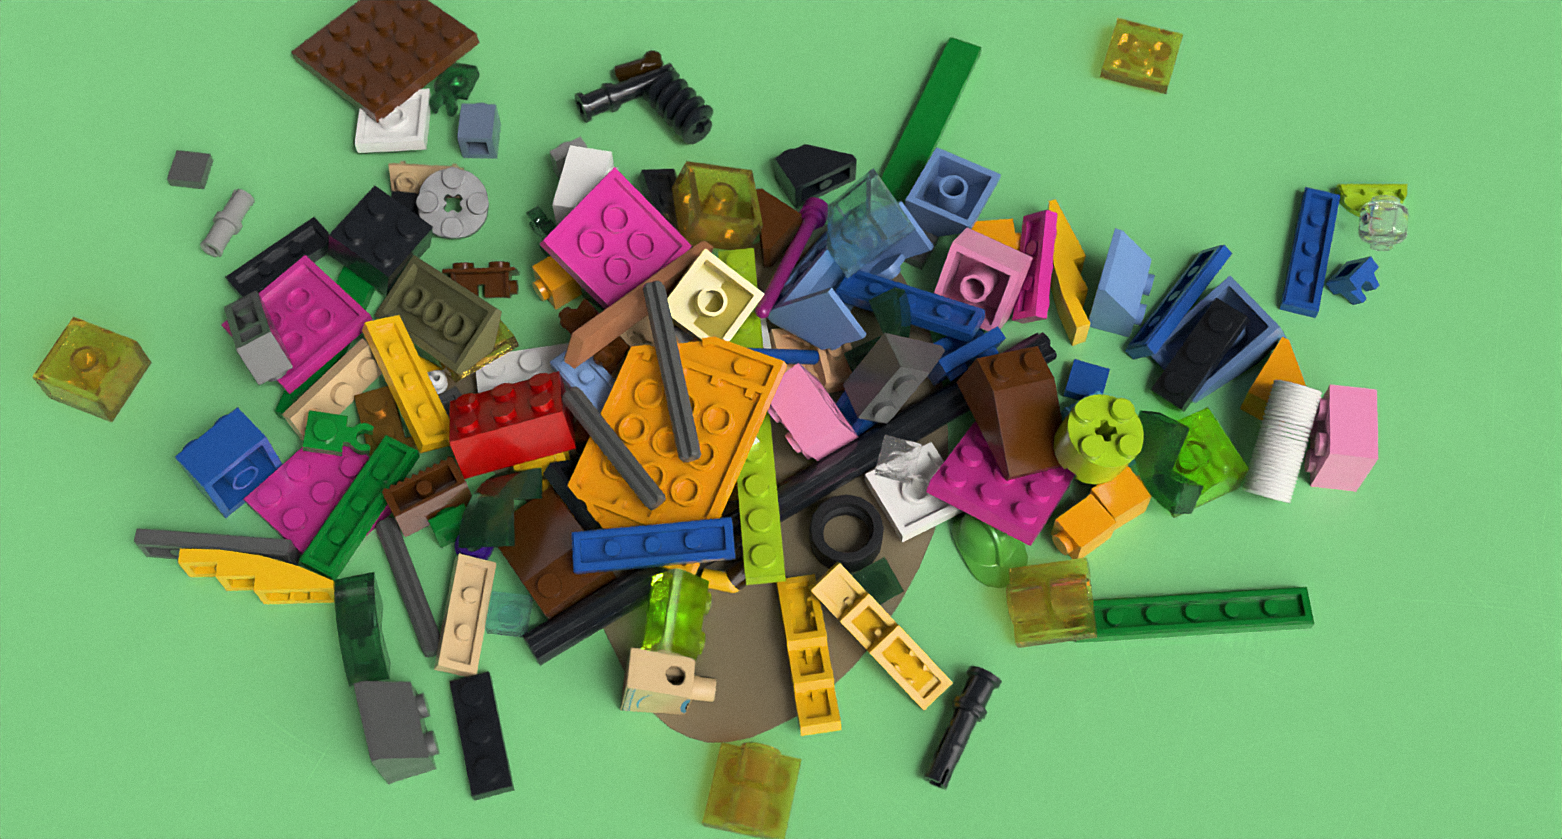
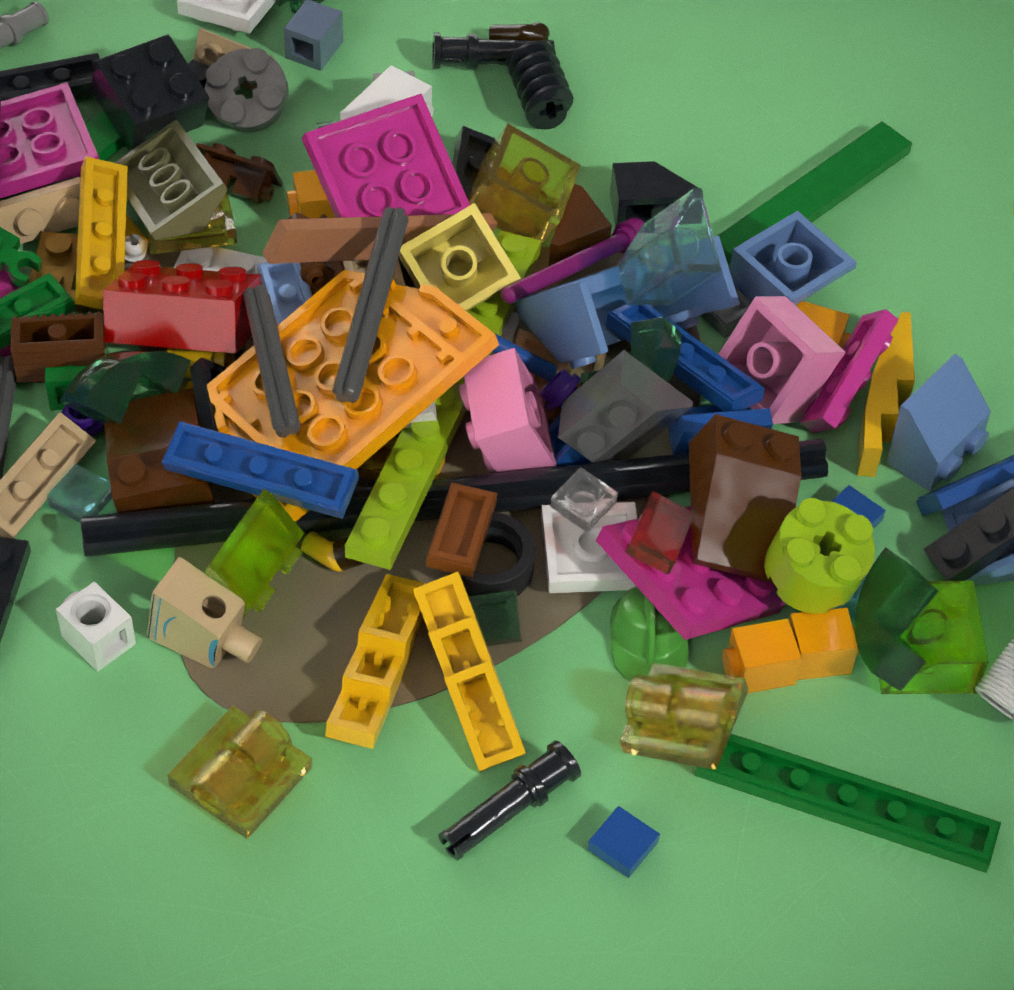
camera: 20 degrees right, 10 degrees down
(592, 733) = (98, 642): none -> white brick
(821, 524) = (461, 529): none -> dark orange tile
(834, 373) = (558, 389): none -> dark purple plate
(974, 468) = (659, 533): none -> clear red tile
(1054, 720) = (623, 841): none -> blue tile

